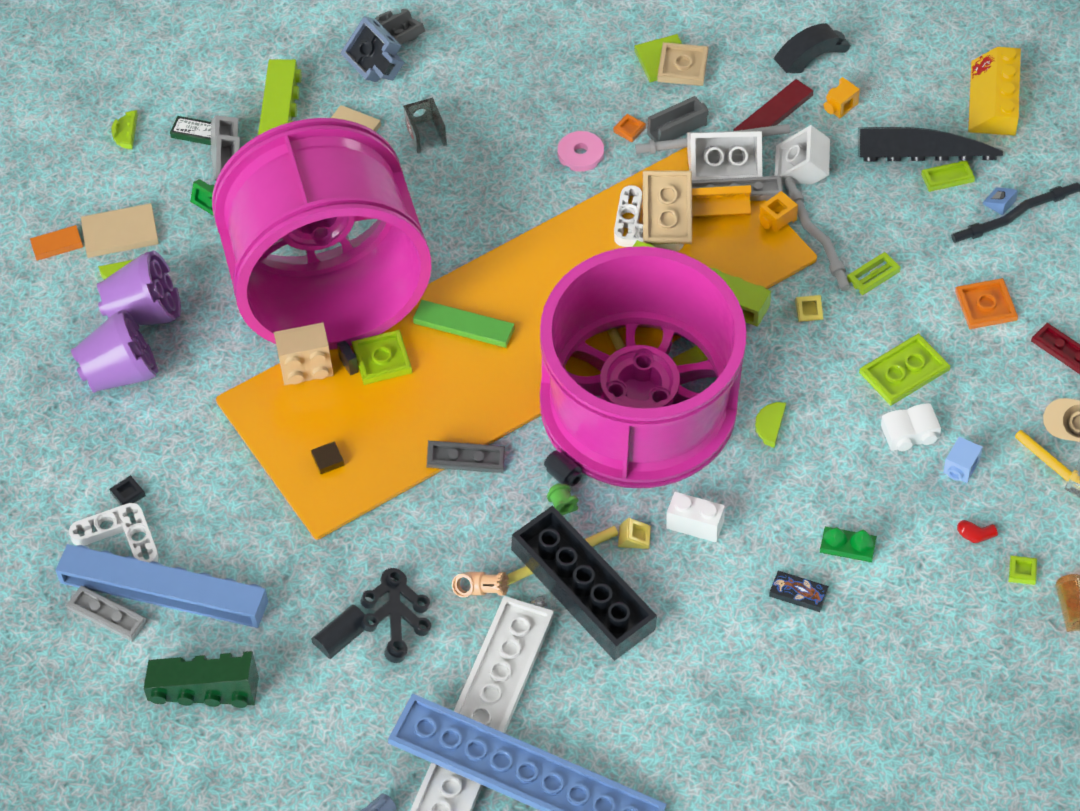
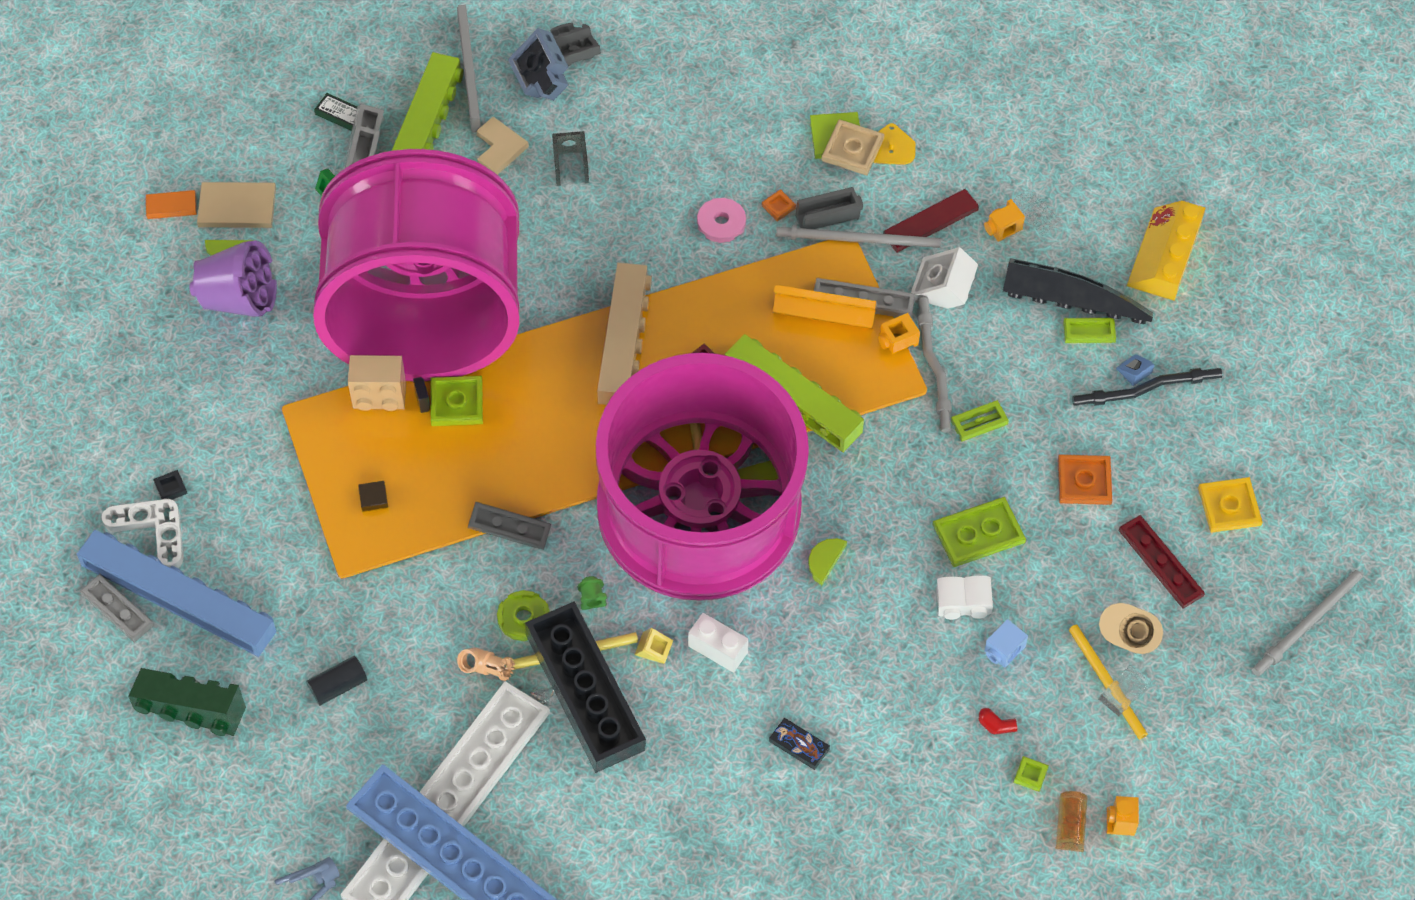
camera: 10 degrees right, 5 degrees up
(115, 354) = (194, 340): medium lavender cone -> none
(124, 129) = (270, 96): lime tile -> none
(306, 68) = (468, 68): none -> light grey tile
(396, 610) = (395, 669): black plant -> none
(464, 323) = (548, 383): bright green tile -> none
(493, 523) = (516, 602): none -> lime tile
(521, 263) = (624, 328): none -> tan brick
(563, 468) = (602, 560): black brick -> none
(635, 230) = (751, 321): white beam -> none
(667, 207) = (784, 306): tan tile -> none
(724, 54) = (897, 141): none -> yellow piece
(724, 154) = (864, 258): white slope -> none
(808, 45) = (987, 155): black arch -> none
(809, 308) = (901, 444): light yellow slope -> none
(848, 544) = (863, 705): green tile -> none

